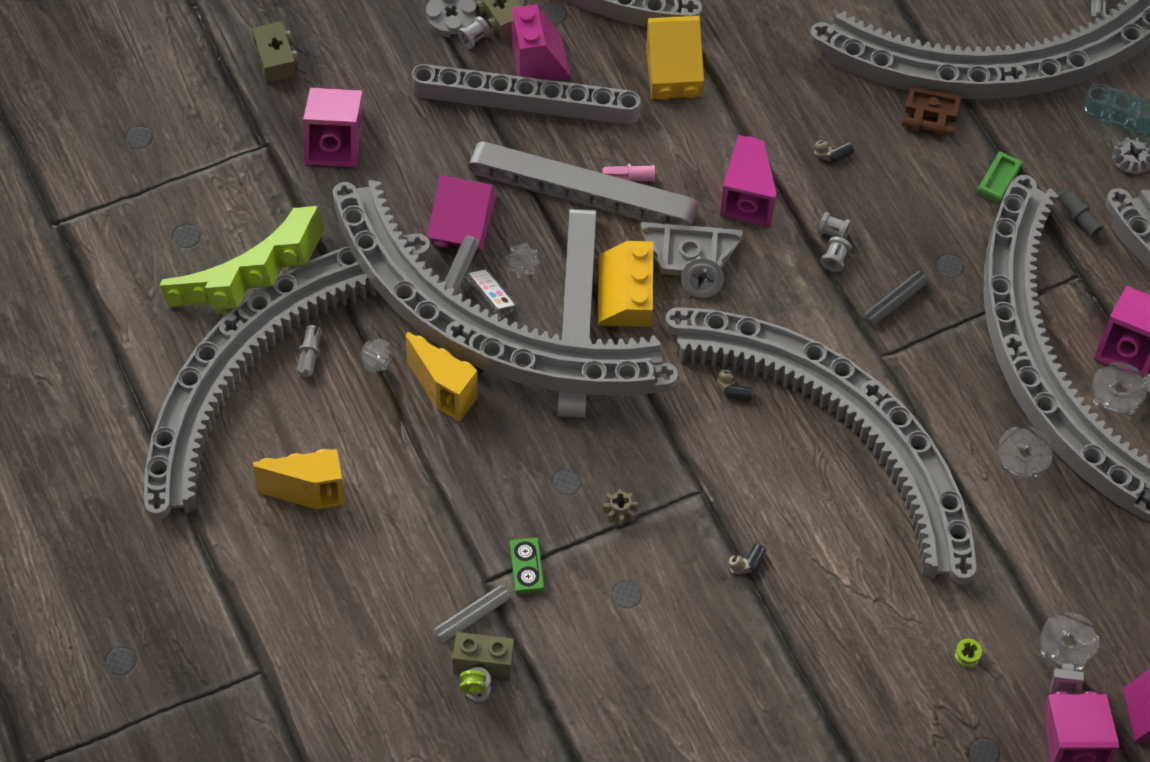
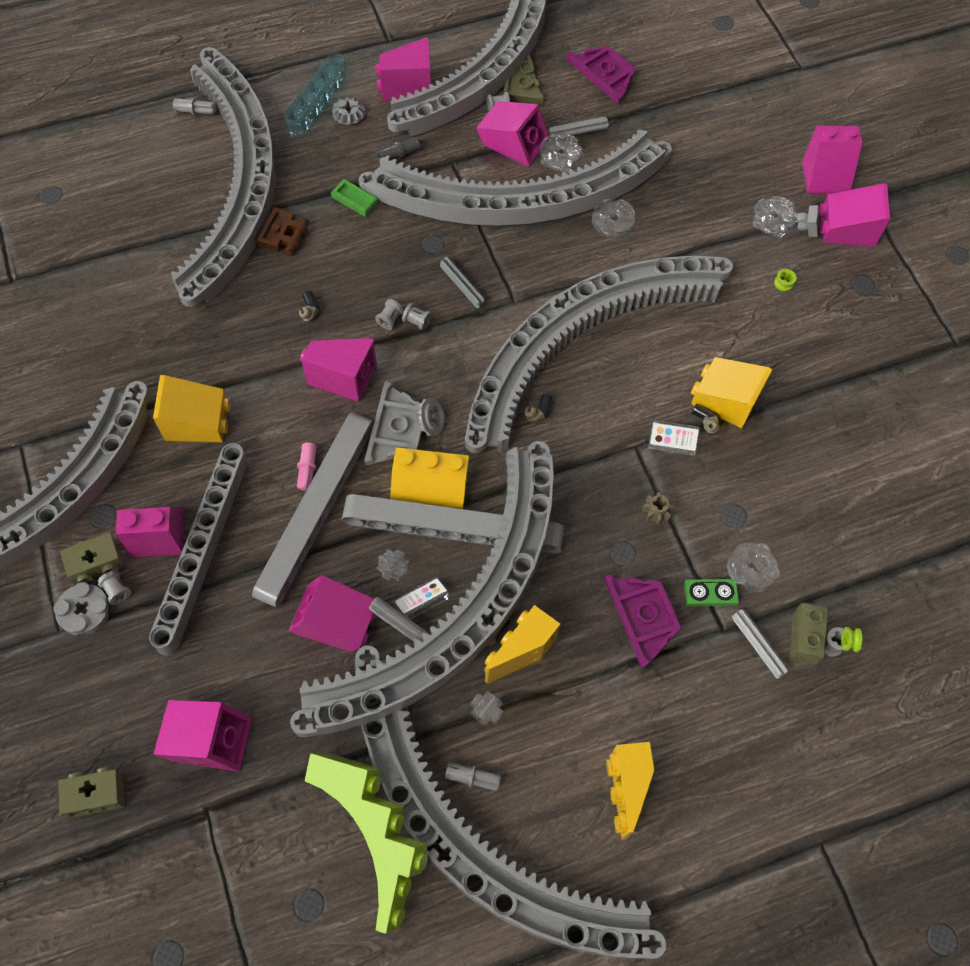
camera: 85 degrees left, 5 degrees up
(491, 498) = (644, 615): none -> magenta wing
(553, 619) = (761, 557): none -> clear plate
(715, 525) = (673, 437): none -> slope
(783, 579) = (730, 389): none -> yellow slope

